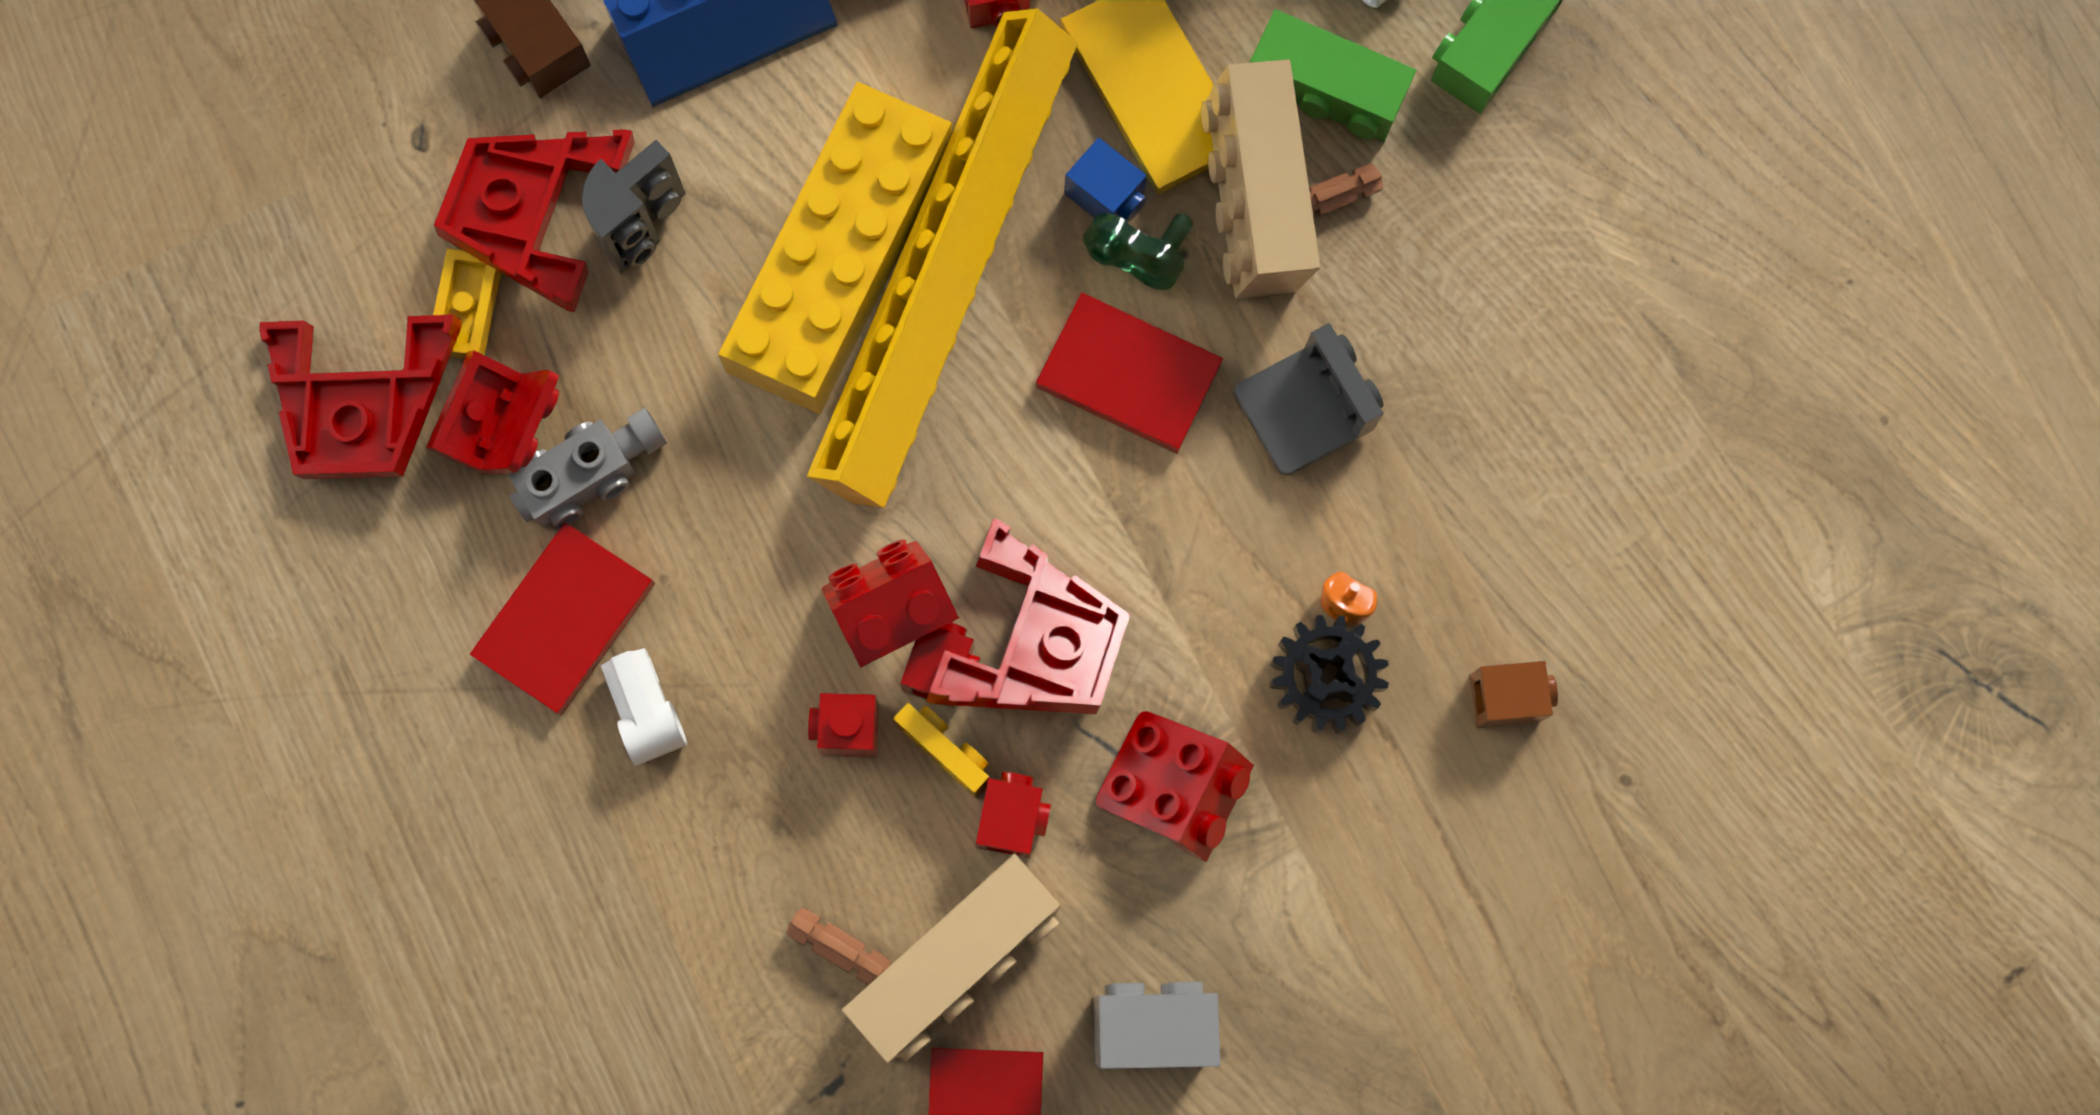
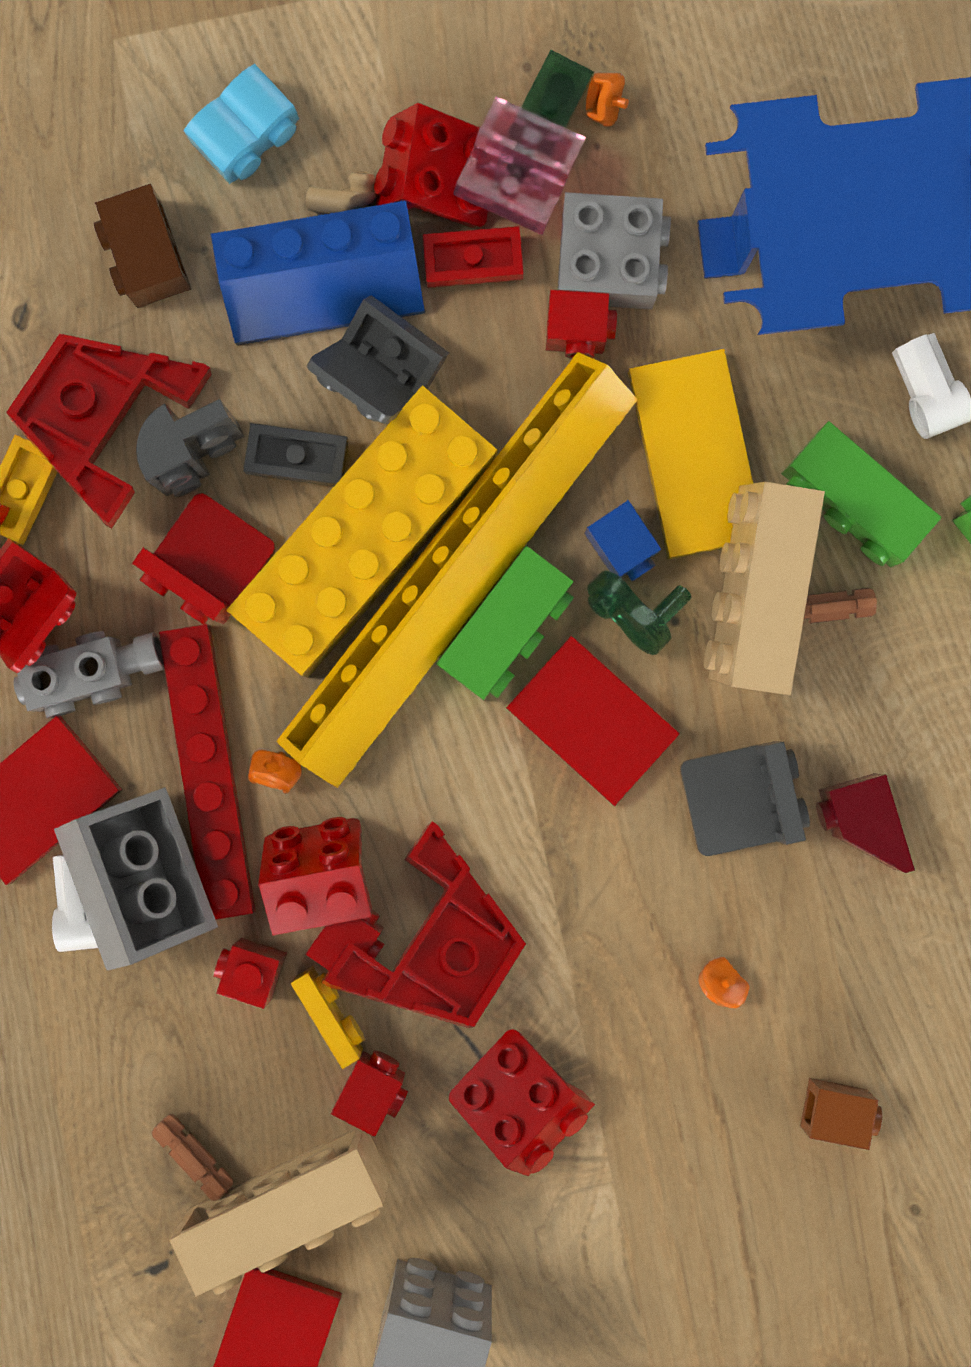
camera: 25 degrees right, 10 degrees up
(679, 319) = (206, 559): none -> red bracket
(697, 653) = (135, 879): none -> light grey brick
(741, 539) = (207, 769): none -> red plate
(744, 192) = (295, 455): none -> dark grey plate
(806, 72) = (378, 362): none -> dark grey bracket
(812, 512) = (274, 770): none -> orange piece
(1011, 299) = (507, 625): none -> bright green brick
(1310, 661) = (698, 1035): black gear -> none
(1441, 390) = (867, 819): none -> dark red slope

